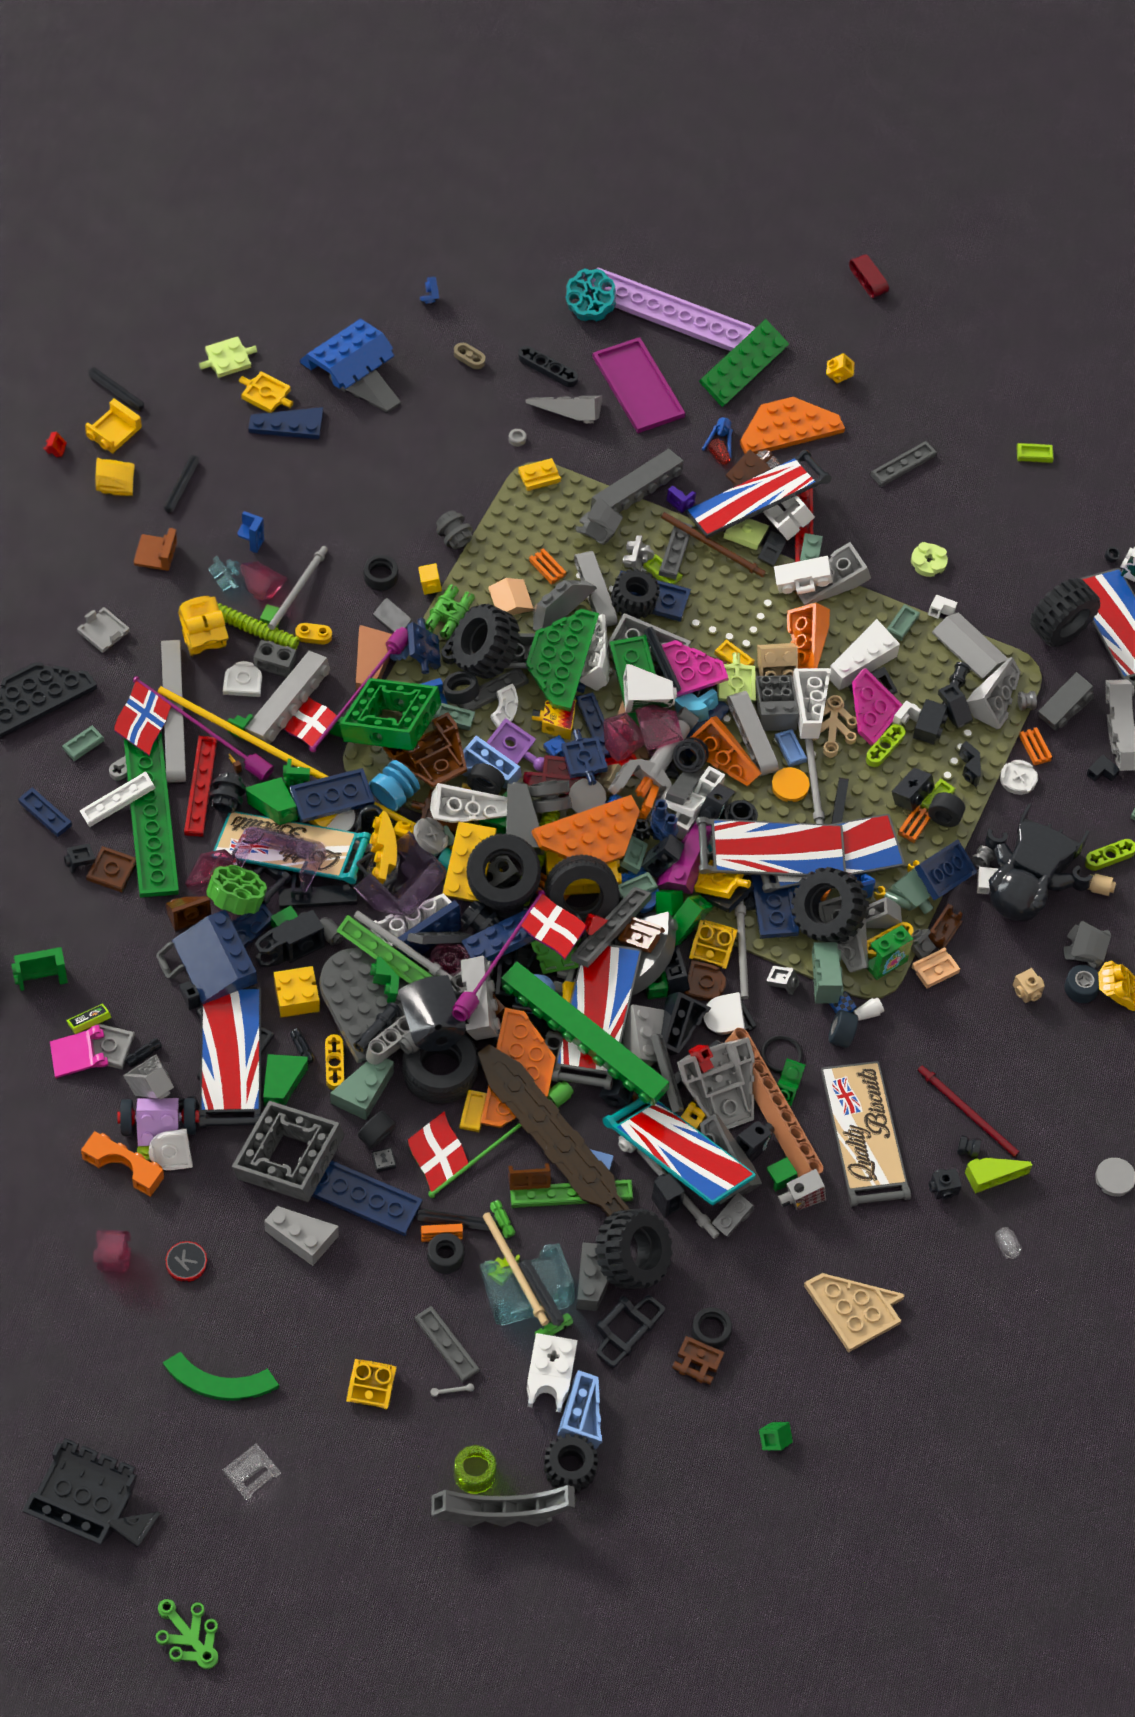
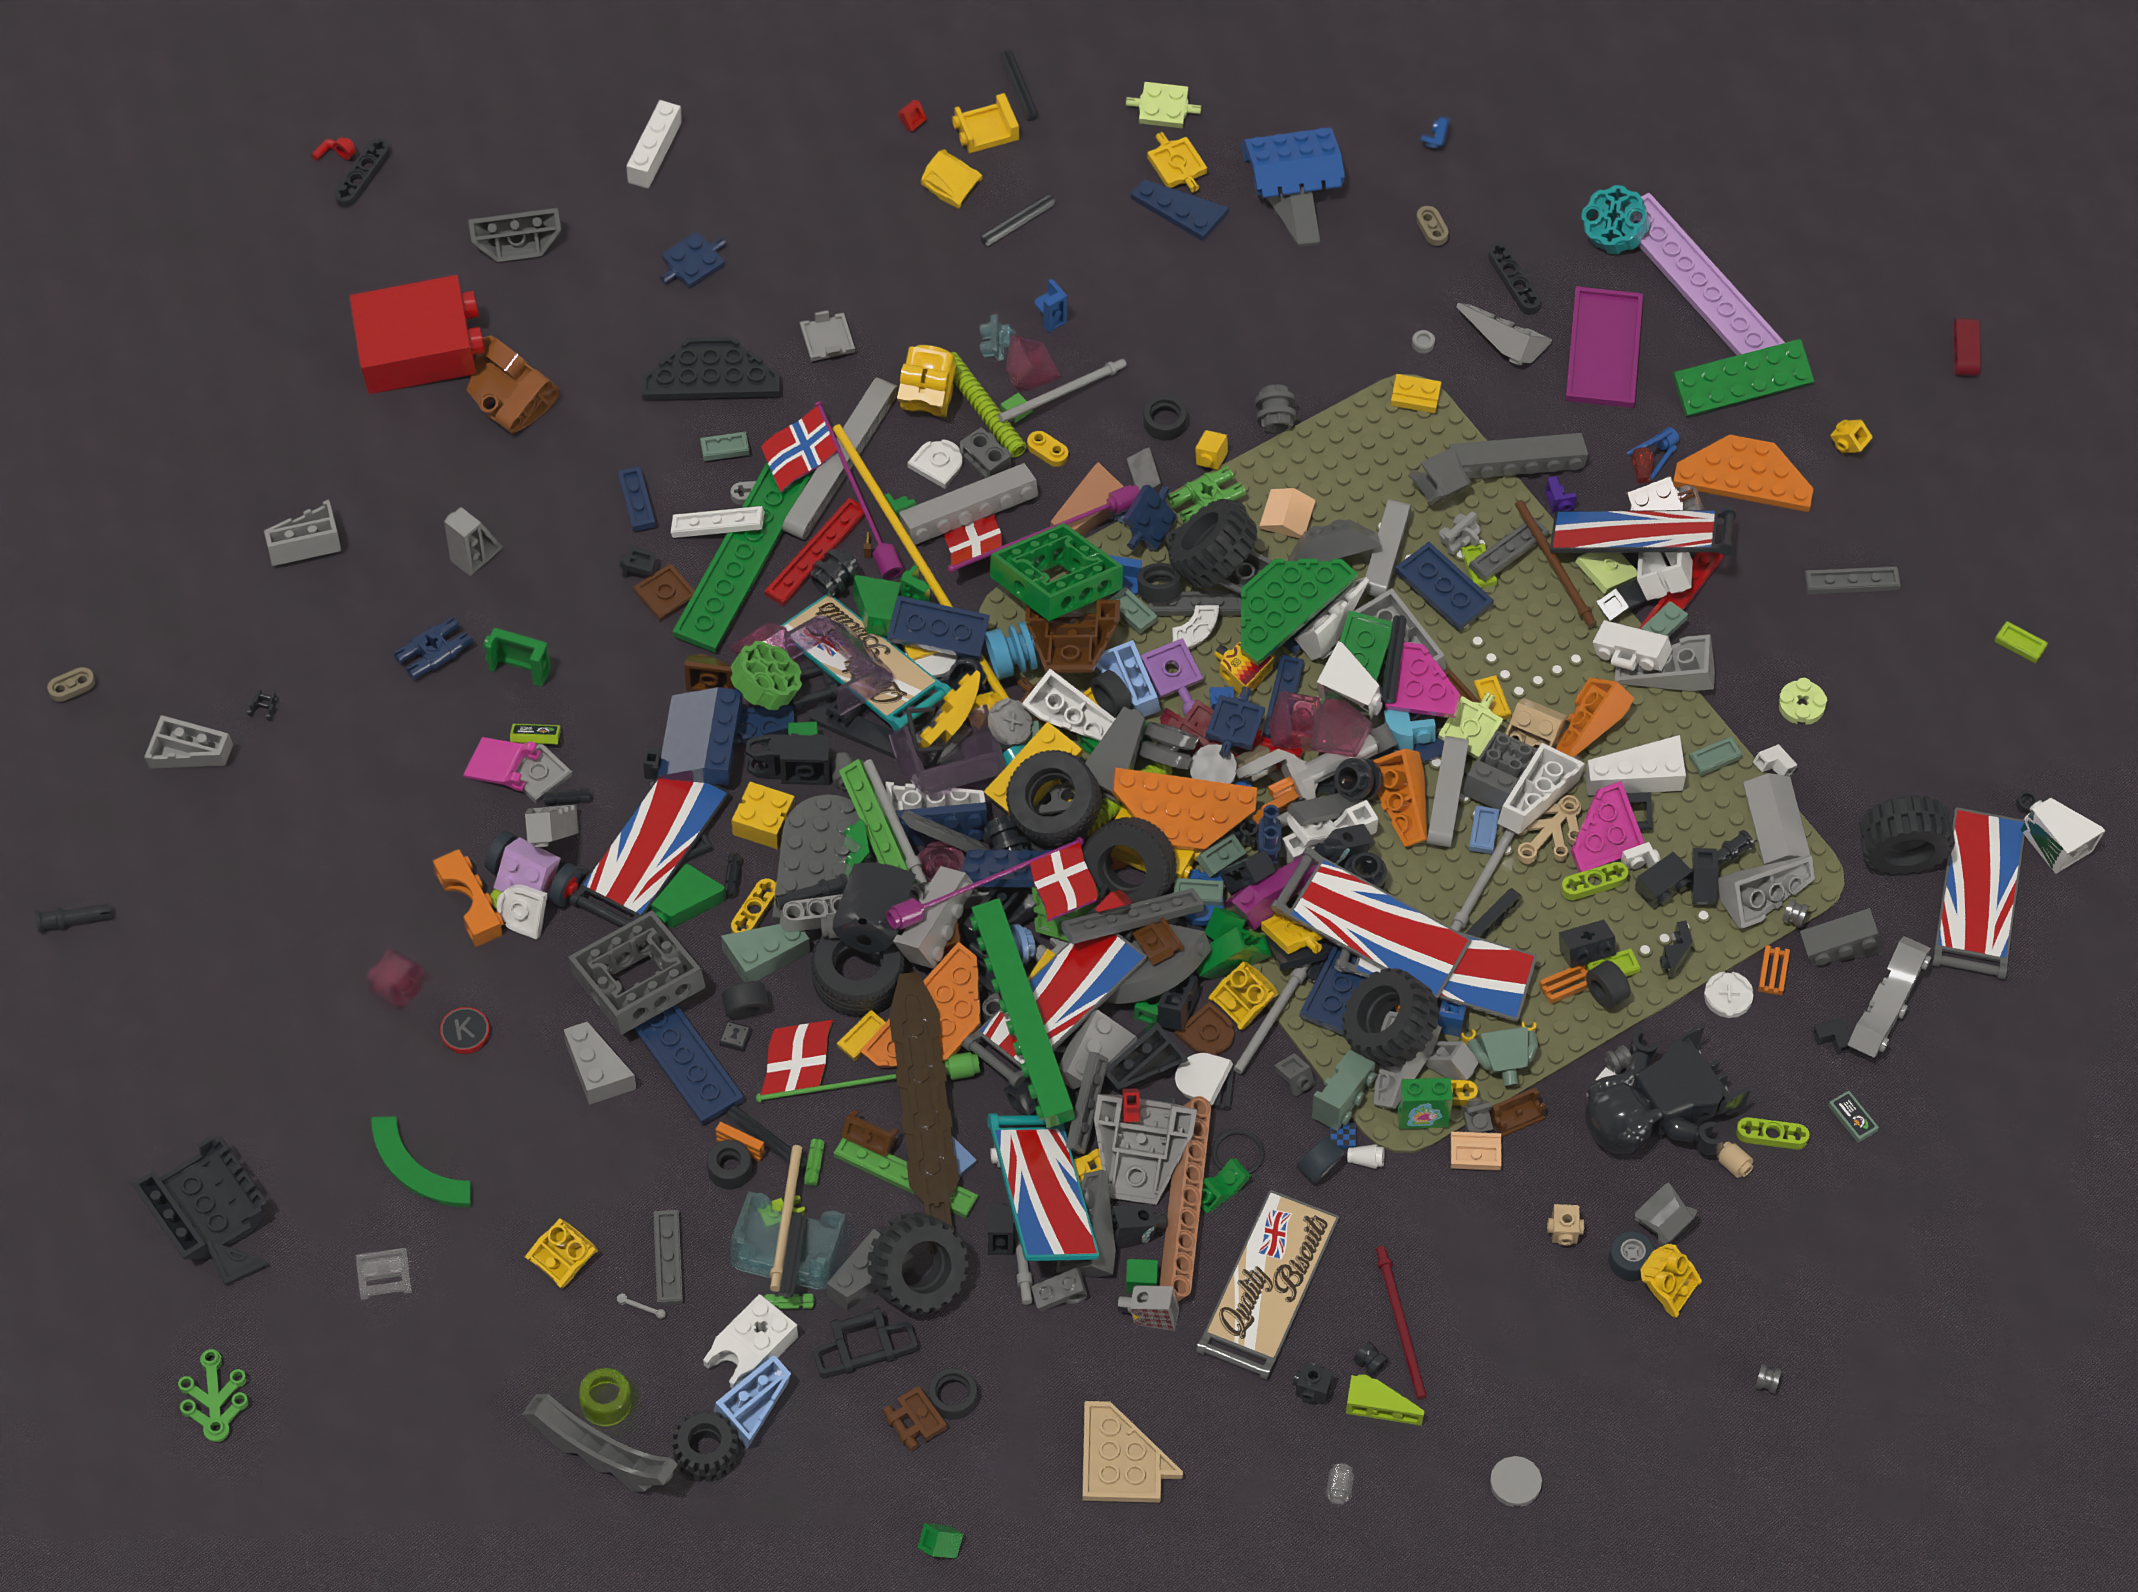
camera: 35 degrees right, 0 degrees up
(156, 551) = (940, 279): dark orange bracket -> none
(164, 965) = (650, 717): dark grey piece -> none
(550, 564) = (1350, 483): orange tile -> none
(635, 582) = (1423, 558): black tyre -> none
(790, 784) = (1454, 869): light orange tile -> none
(945, 869) = (1557, 1048): dark blue plate -> none

